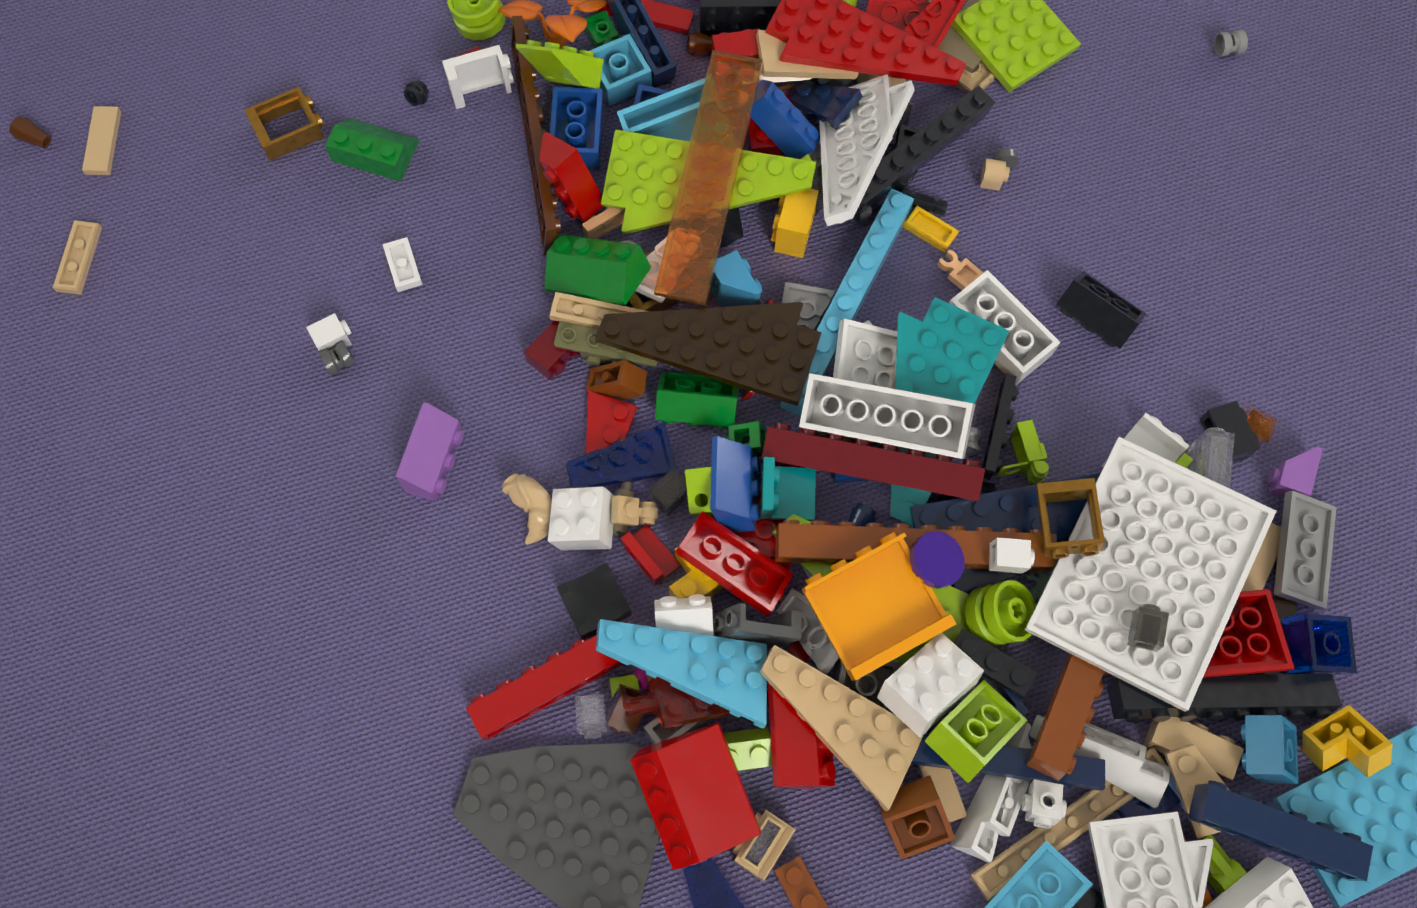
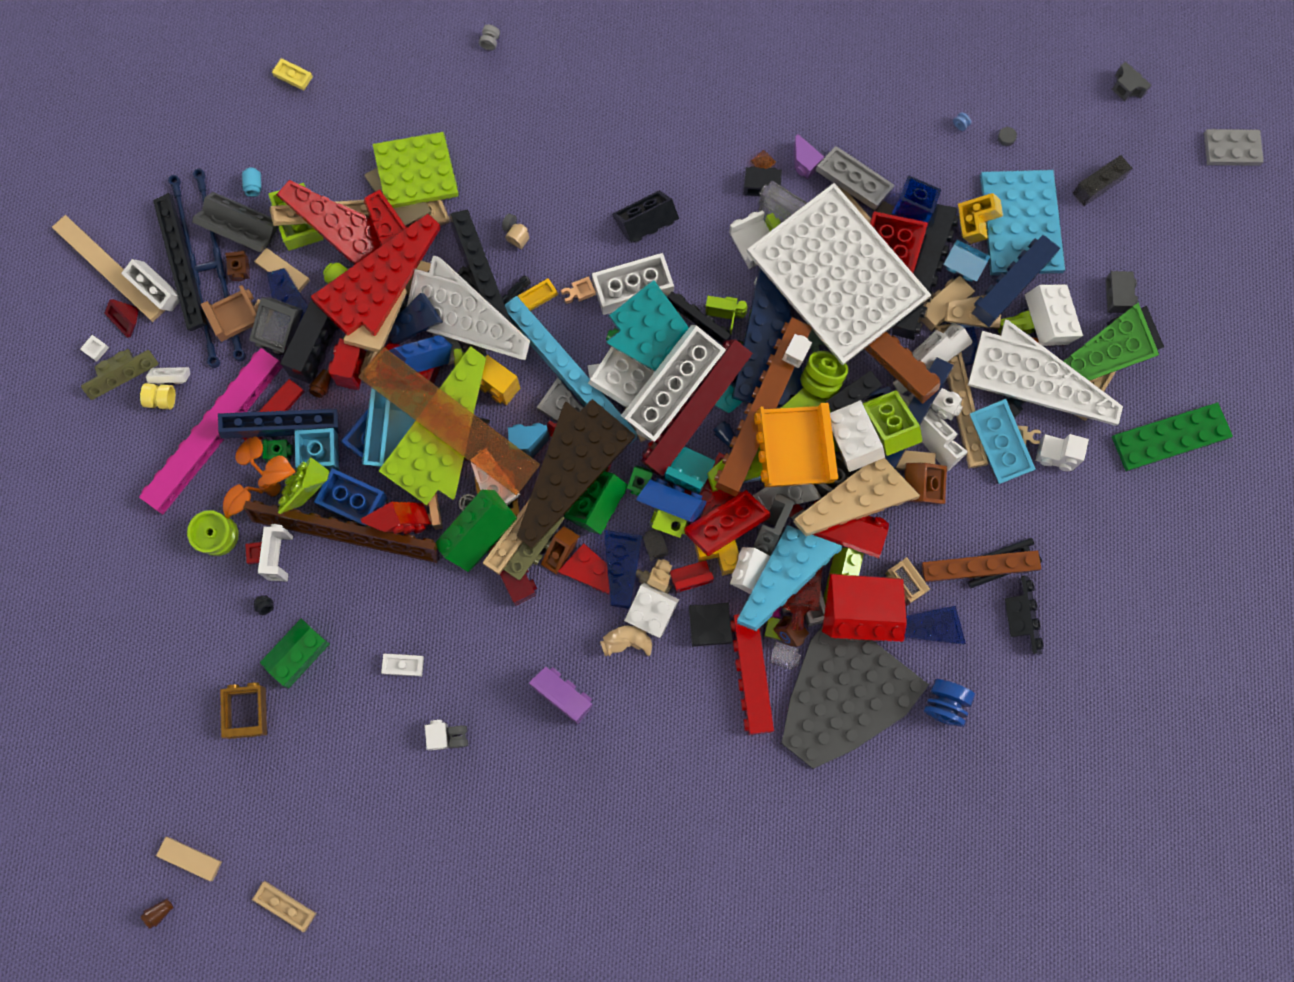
camera: 65 degrees left, 5 degrees up
(937, 559) = (782, 395): dark purple tile -> none
(1070, 491) = (771, 295): pearl gold window -> none
(1148, 628) = (875, 292): clear smoke brick -> none

